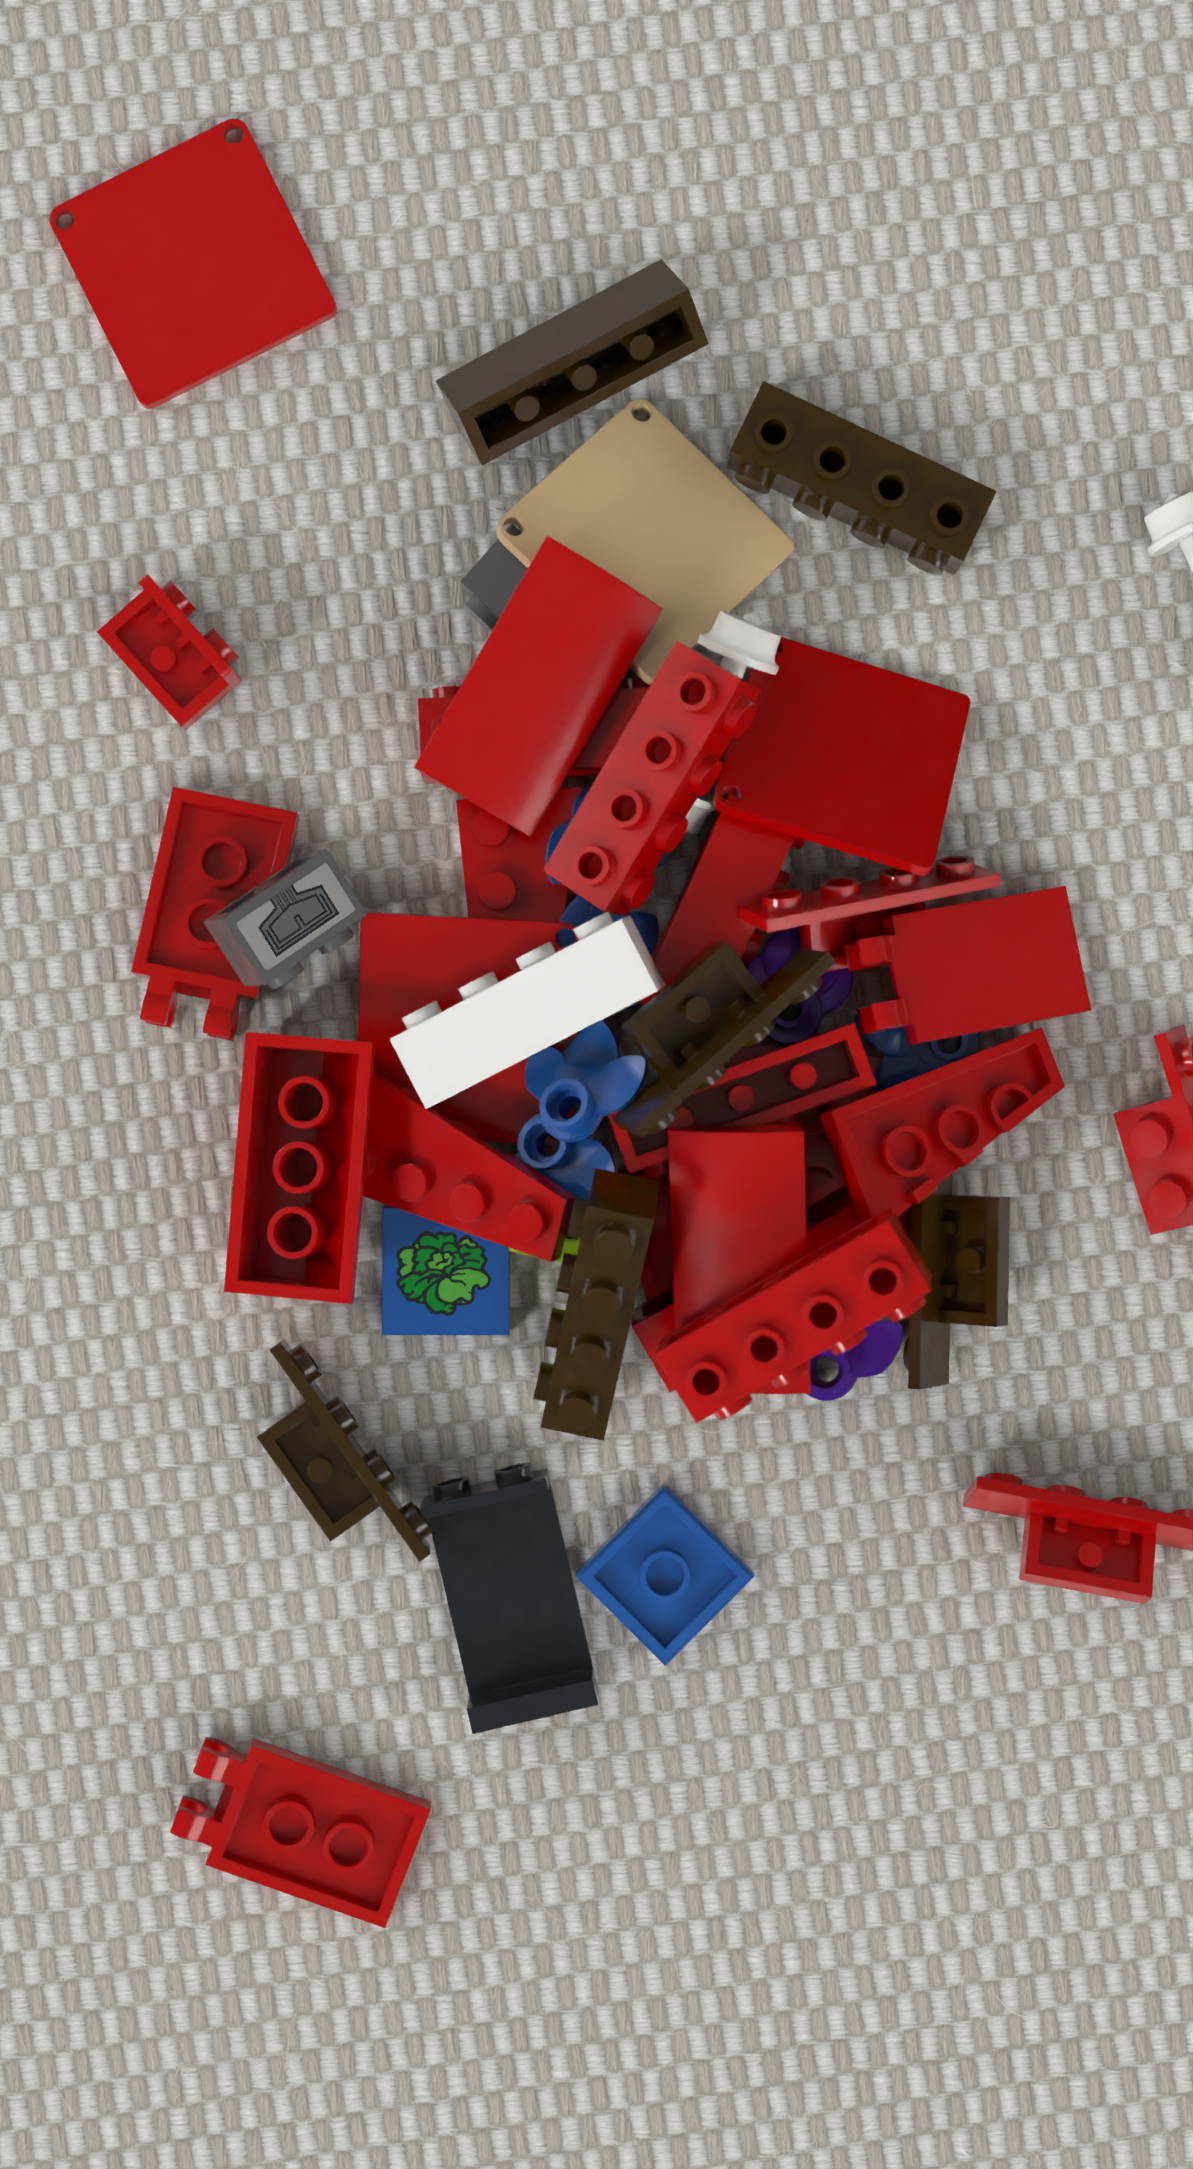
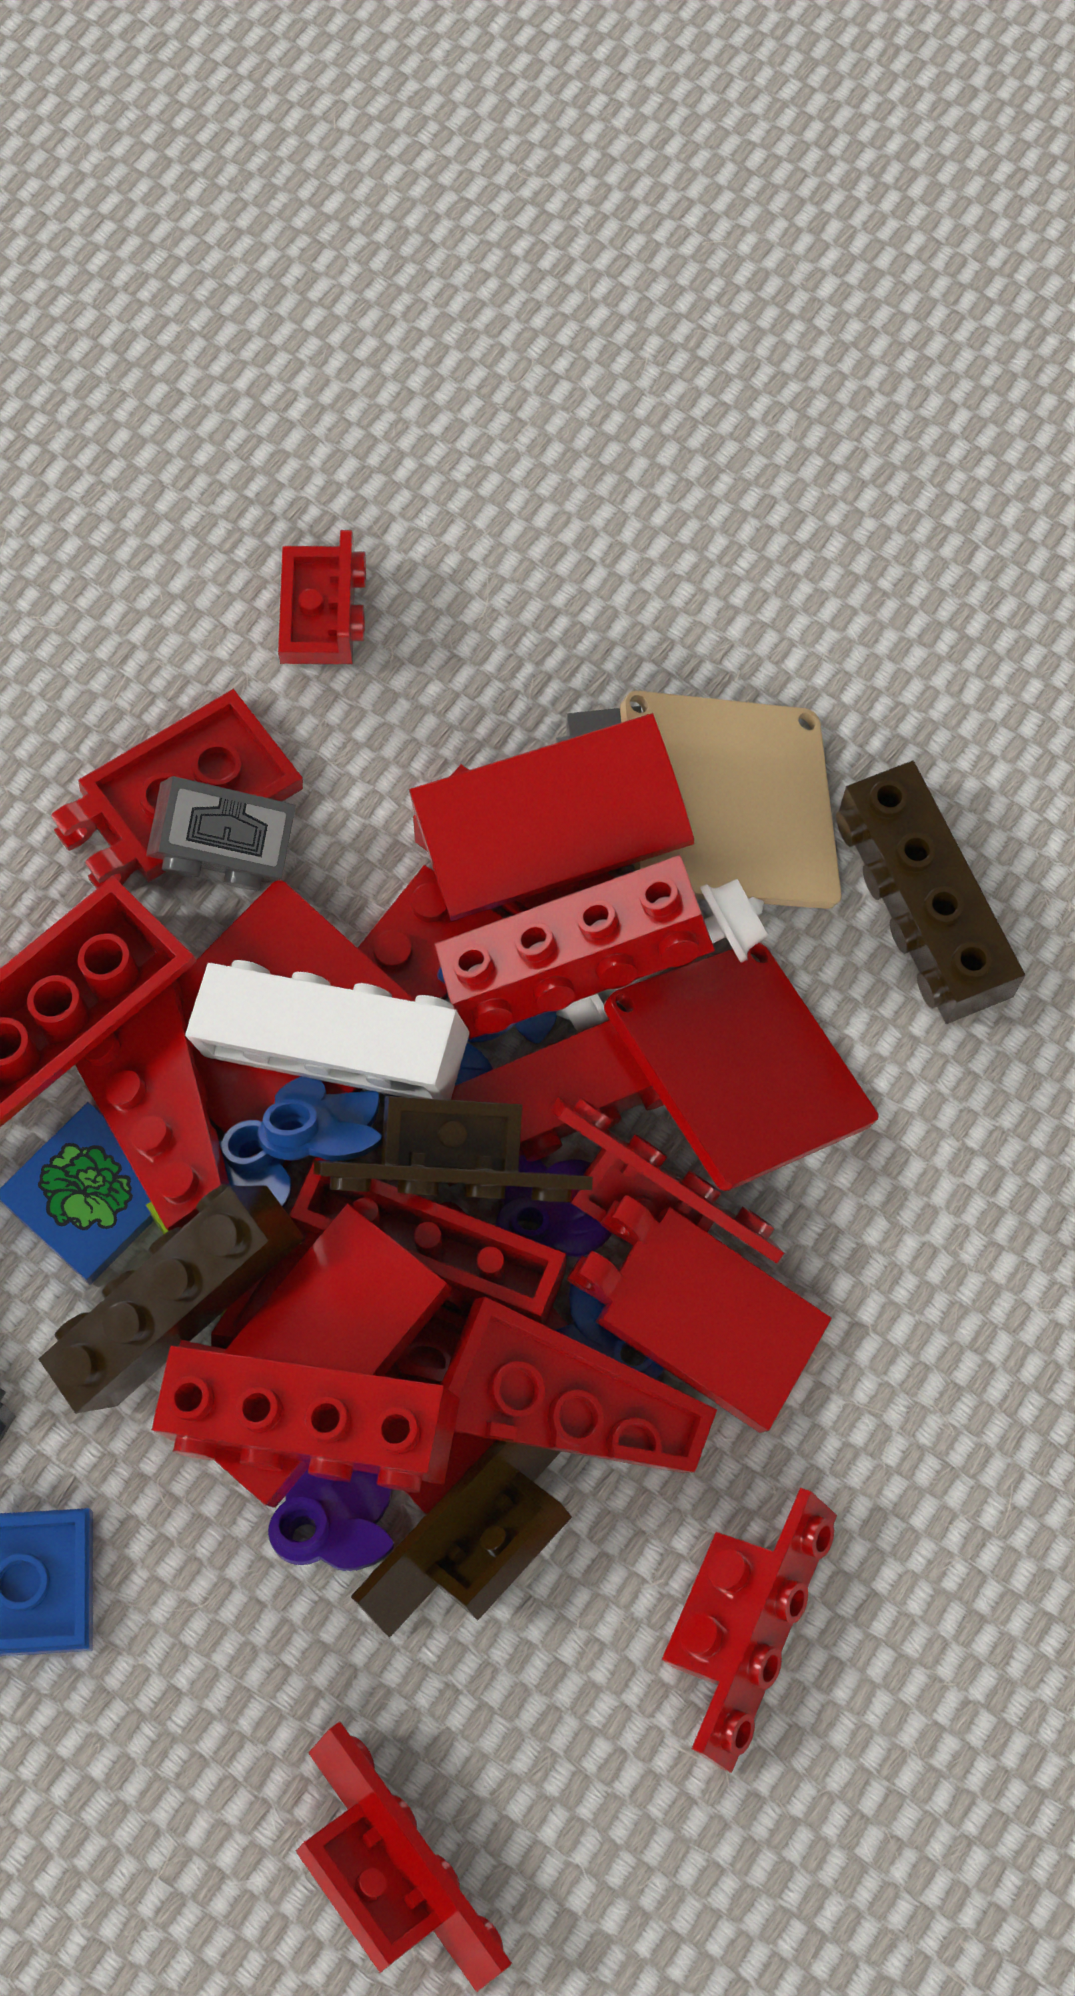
camera: 35 degrees right, 20 degrees down
(192, 263) = (579, 388): red piece -> none
(573, 361) = (784, 643): dark brown brick -> none

